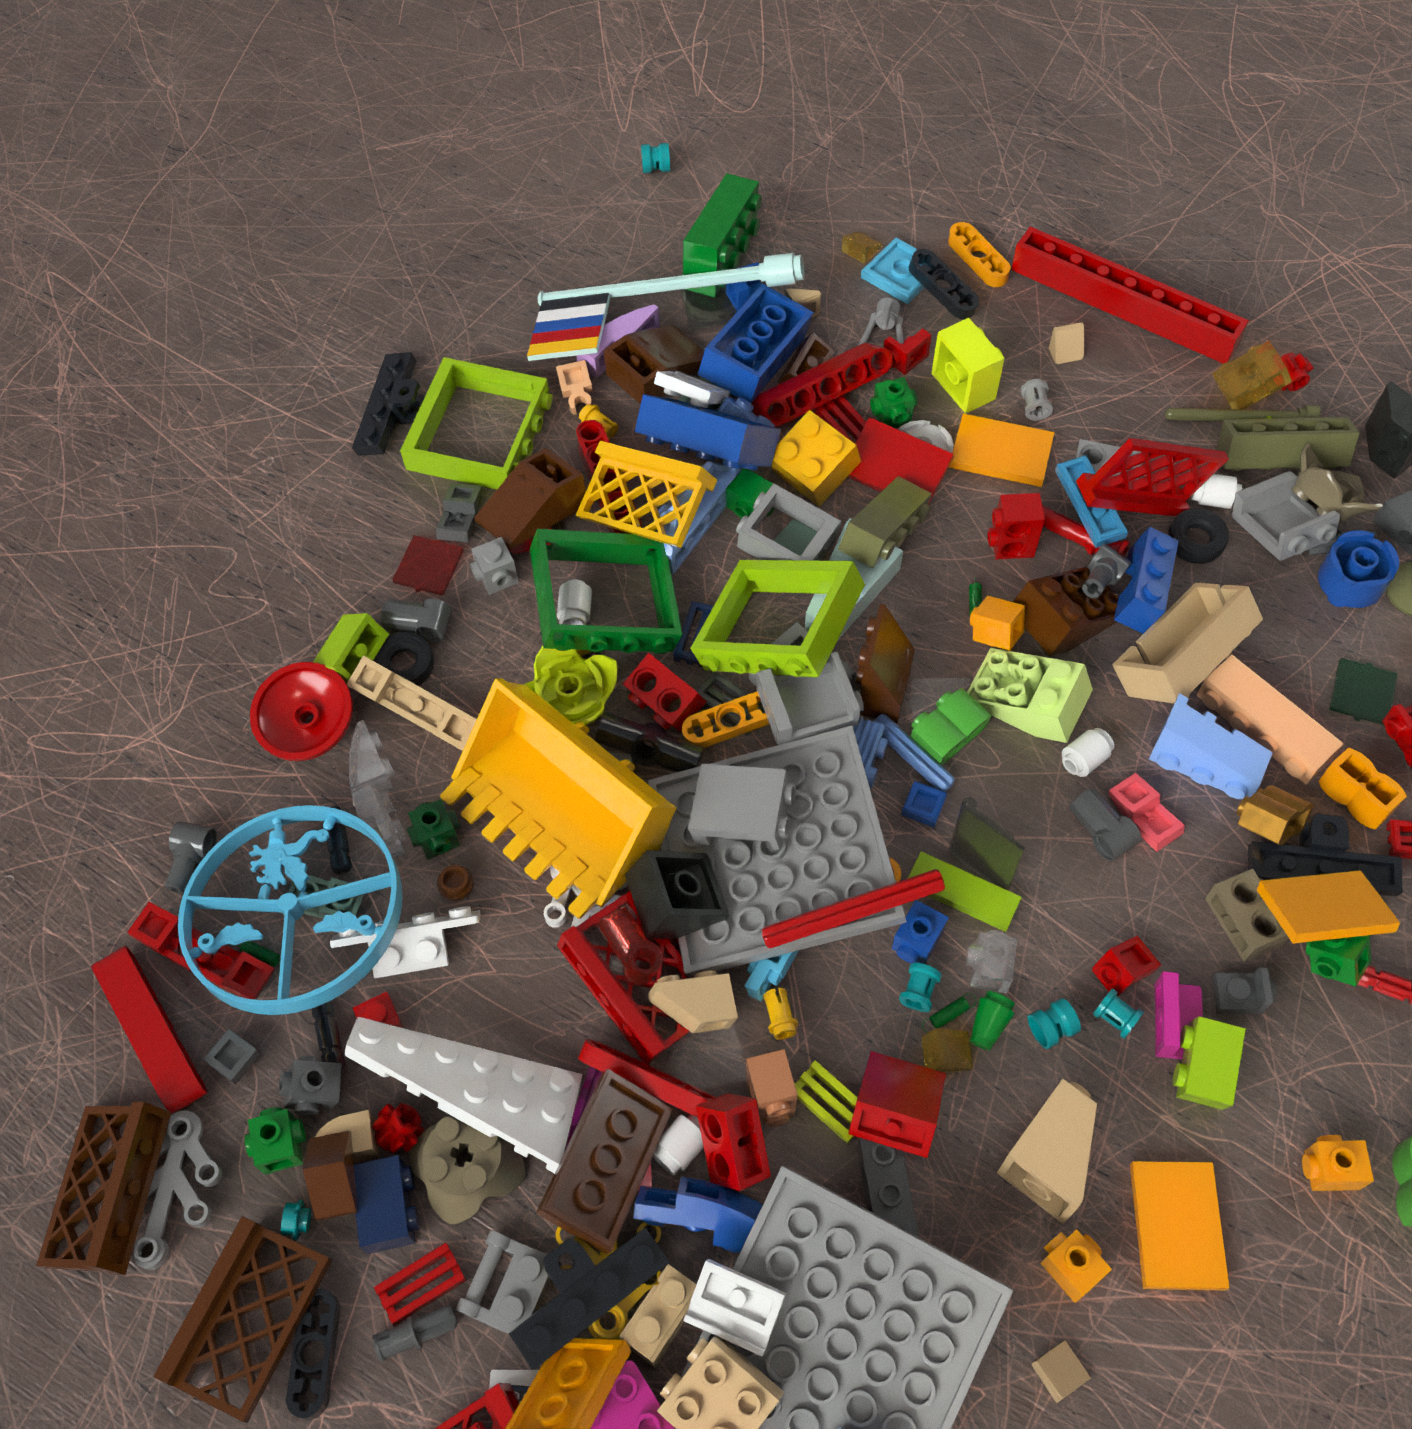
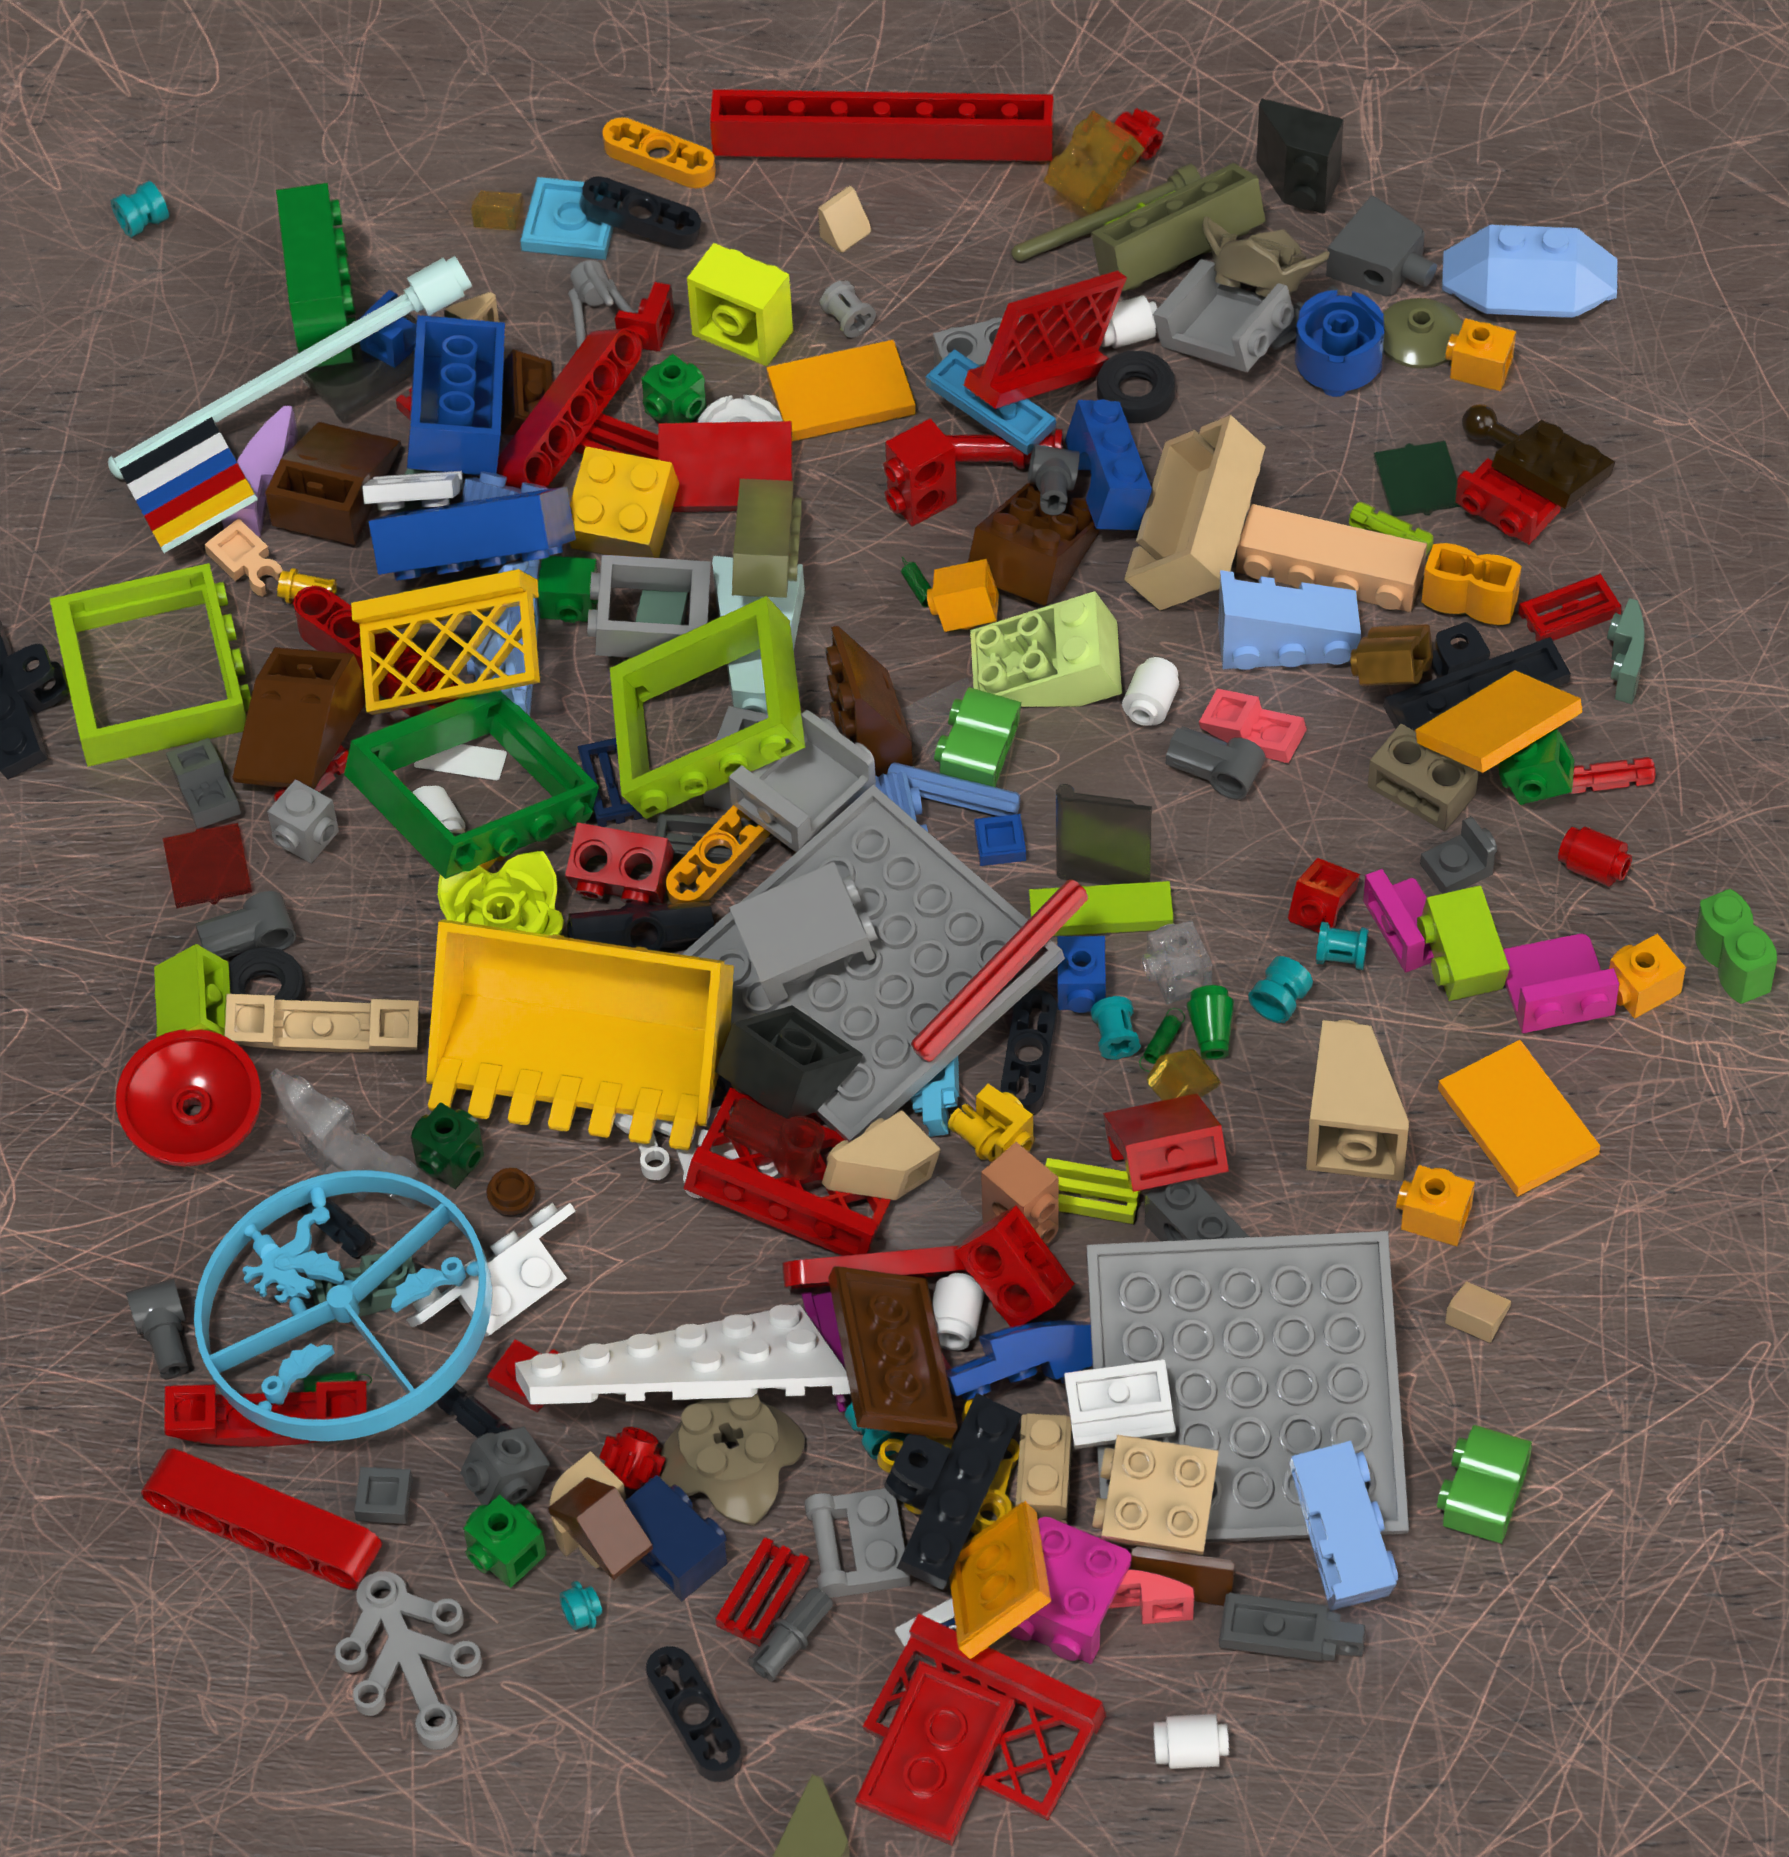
camera: 30 degrees left, 5 degrees down
(122, 1193) = (377, 1674): reddish brown fence -> none
(211, 1311) = (556, 1733): reddish brown fence -> none
(623, 576) = (467, 761): none -> white sticker
(805, 1010) = (1008, 1112): none -> yellow bracket
(842, 998) = (1042, 1038): none -> black beam
(1267, 1133) = (1559, 983): none -> dark pink bracket
(1322, 714) = (1364, 517): none -> lime axle
(1348, 1045) = (1595, 855): none -> red brick

